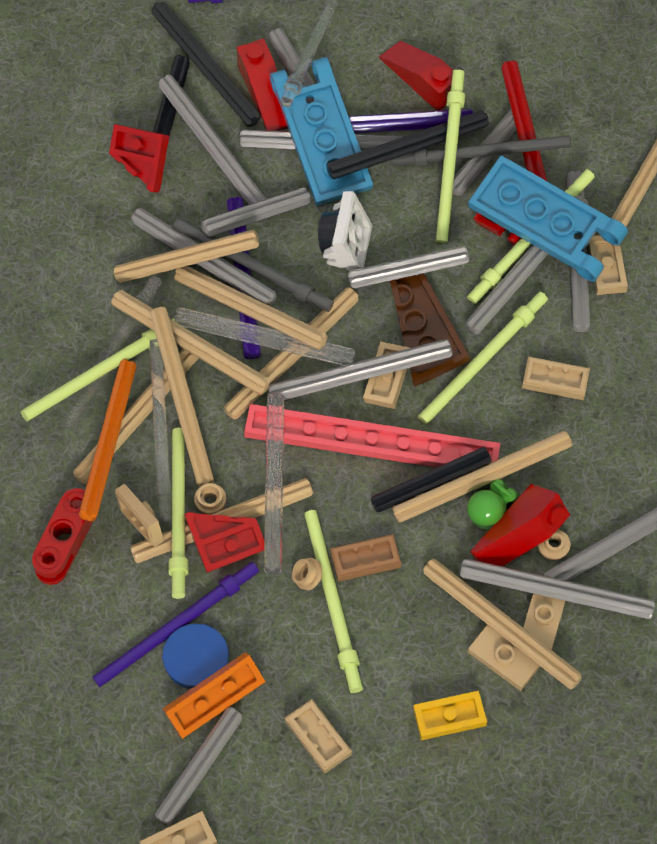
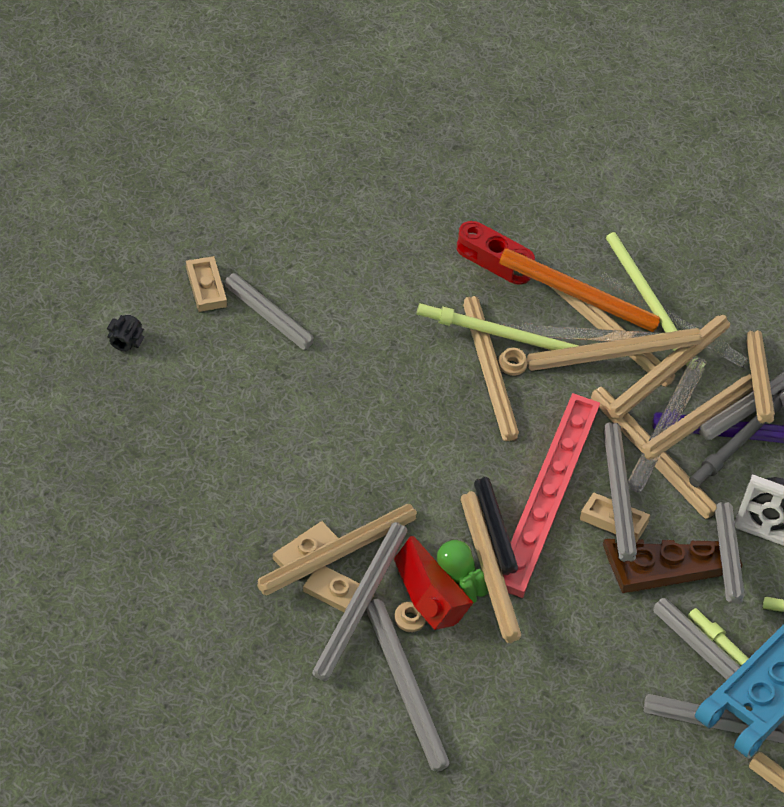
camera: 95 degrees right, 10 degrees down
(140, 515) = (501, 301): tan plate -> none
(194, 654) = (366, 326): blue tile -> none
(214, 695) = (326, 327): orange plate -> none
(224, 538) = (469, 359): red wing -> none
(227, 587) = (424, 357): dark purple bar -> none
(274, 484) = (515, 401): clear axle -> none
(307, 573) = (423, 415): tan plate -> none
(318, 736) = (270, 393): tan plate -> none
(347, 657) = (336, 432): yellowish green bar -> none
(365, 557) = (429, 463): medium nougat plate -> none
(449, 715) = (262, 492): yellow plate -> none
(521, 317) = (665, 650): yellowish green bar -> none
(555, 378) = (590, 662): tan plate -> none
(613, 276) = (713, 744): tan plate -> none

